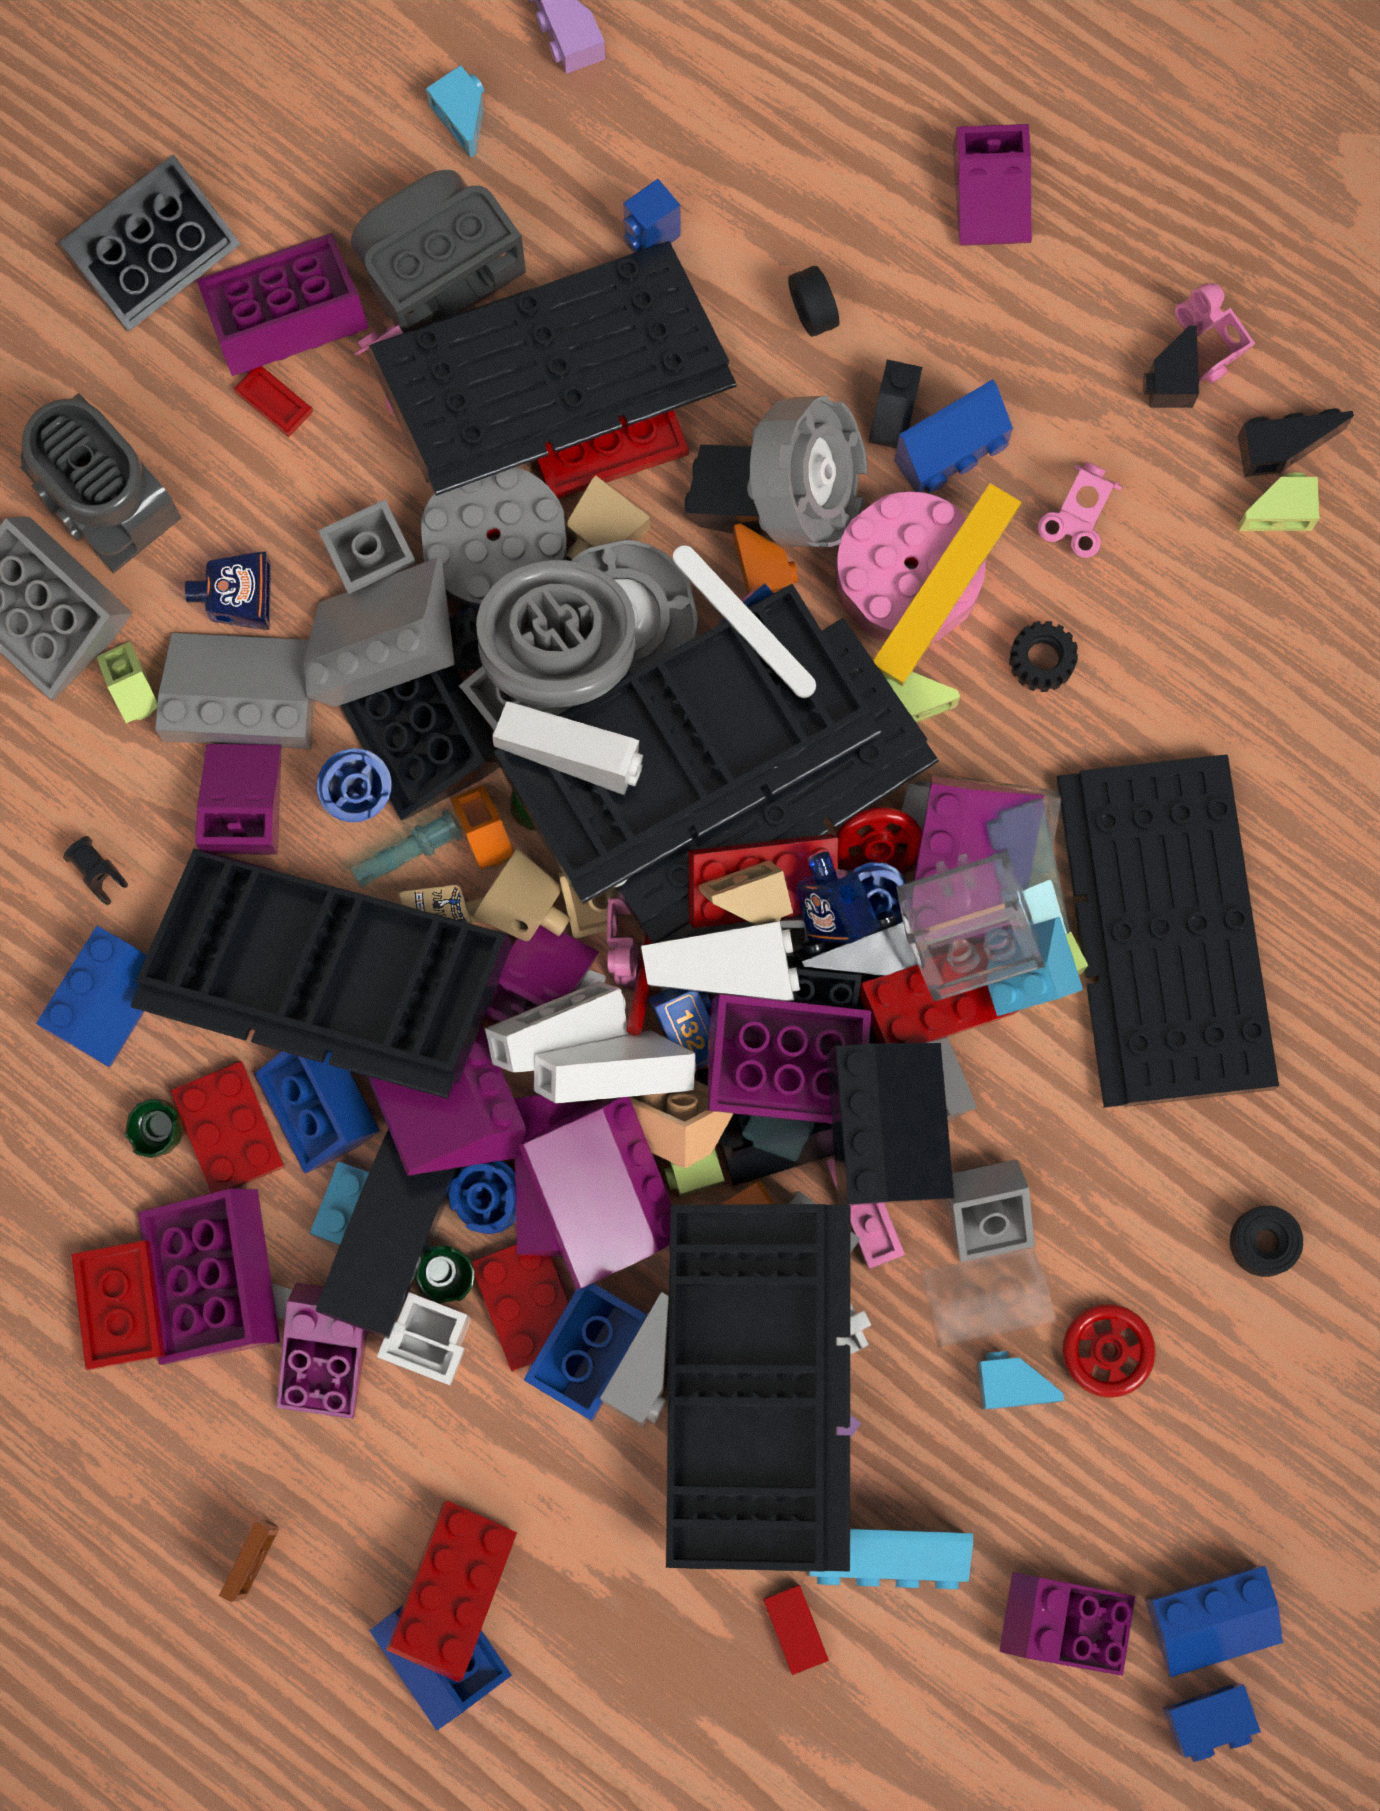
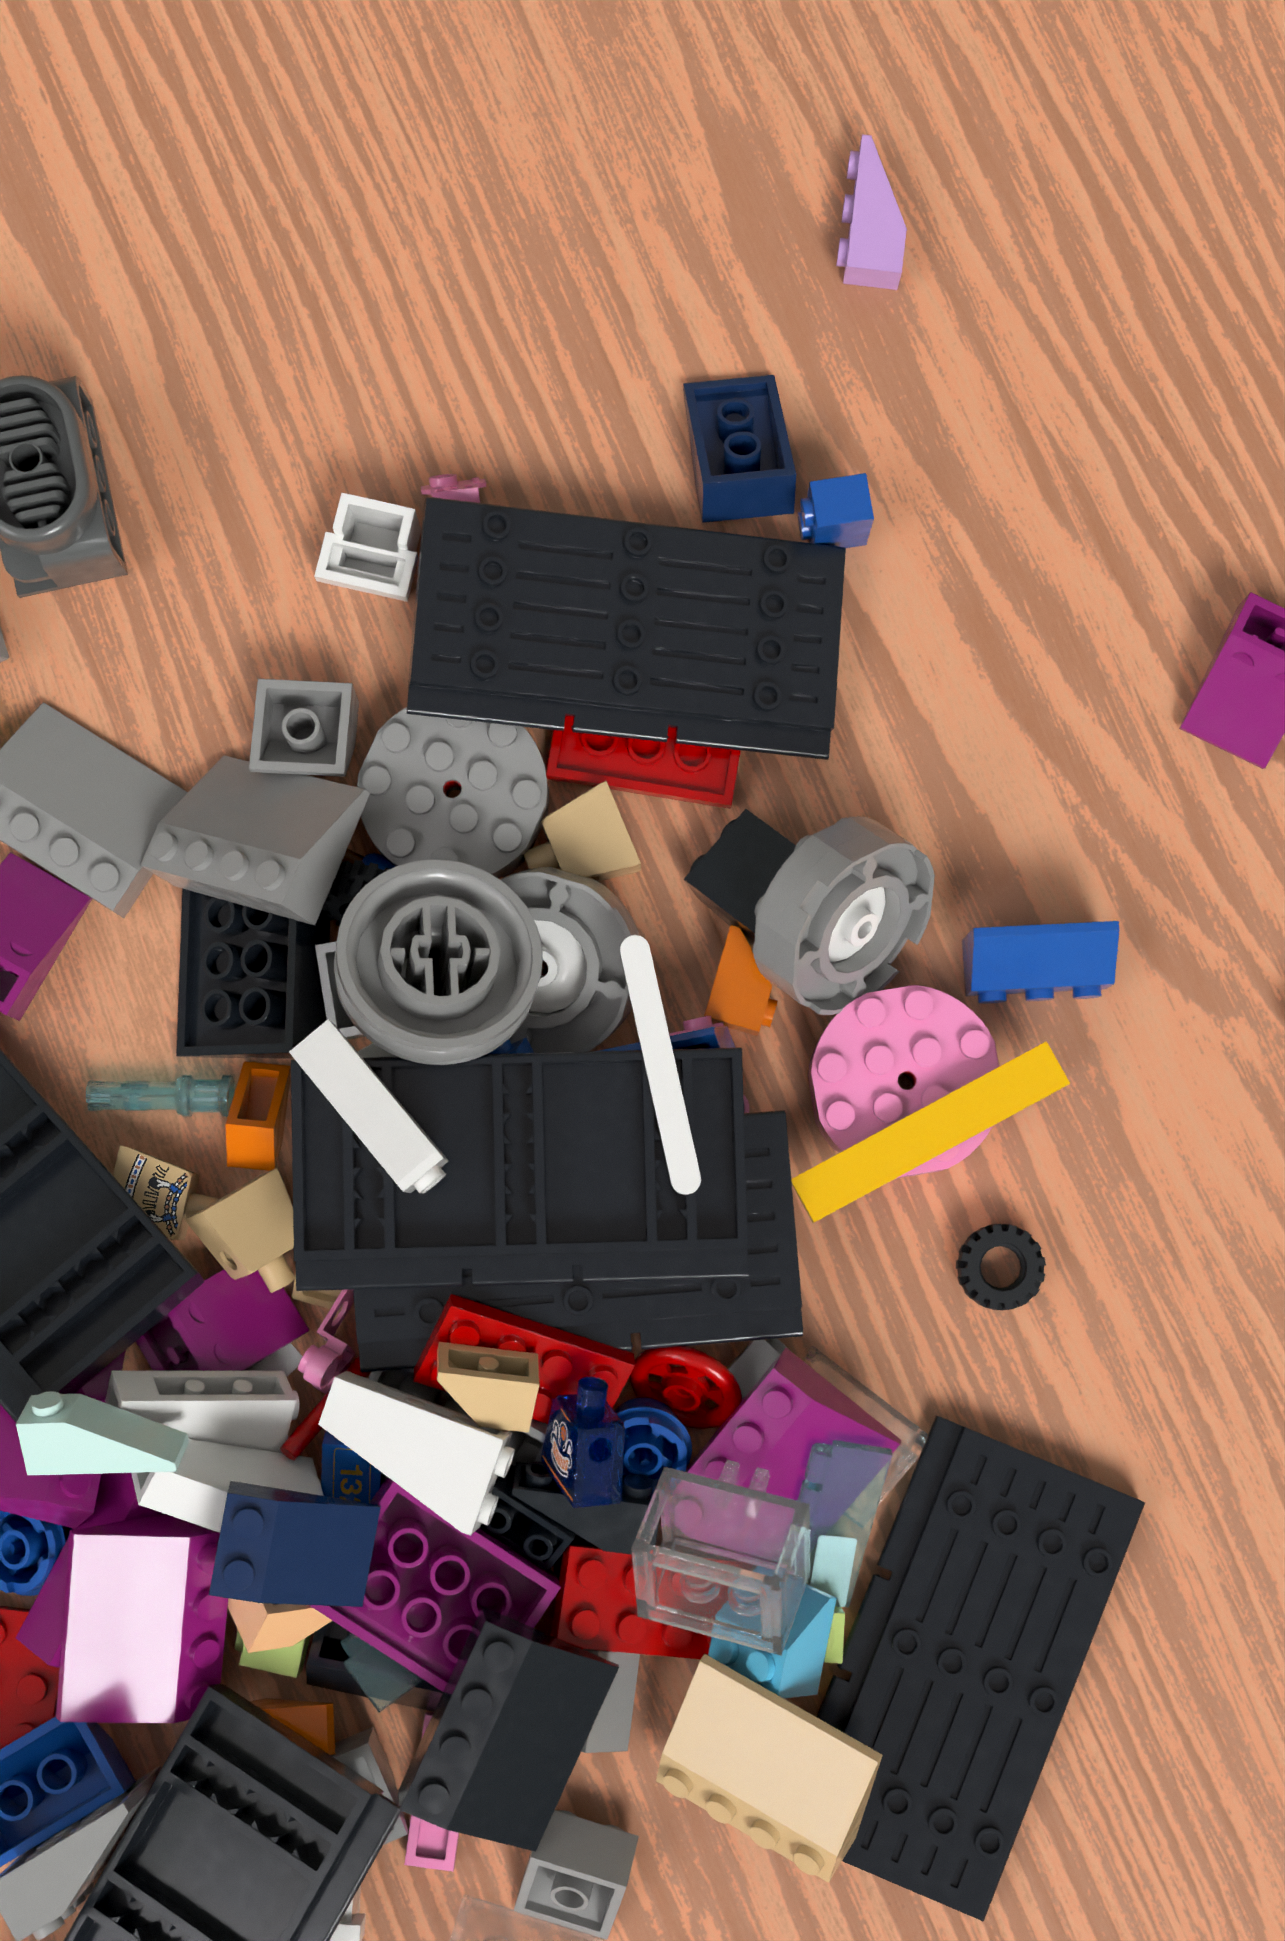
camera: 30 degrees right, 5 degrees up
(148, 243) = (259, 236): black slope -> none
(235, 590) = (137, 693): clear blue torso -> none
(273, 400) = (301, 492): red tile -> none
(282, 304) = (369, 387): magenta slope -> none
(346, 407) = (371, 548): none -> white plate
(354, 785) = (138, 994): blue cone -> none
(437, 249) = (567, 421): dark grey brick -> none
(459, 106) = (698, 260): medium azure slope -> none
(497, 1070) = (91, 1437): none -> light aqua slope
(560, 215) = (739, 449): none -> dark blue slope
(677, 1070) = (293, 1547): none -> dark blue slope
(813, 301) = (970, 708): black tyre -> none
(895, 402) = (997, 879): black slope -> none
(925, 696) = (829, 1239): yellowish green slope -> none
(1076, 519) = (1126, 1128): bright pink piece -> none
(1078, 1052) = (768, 1769): none -> tan slope

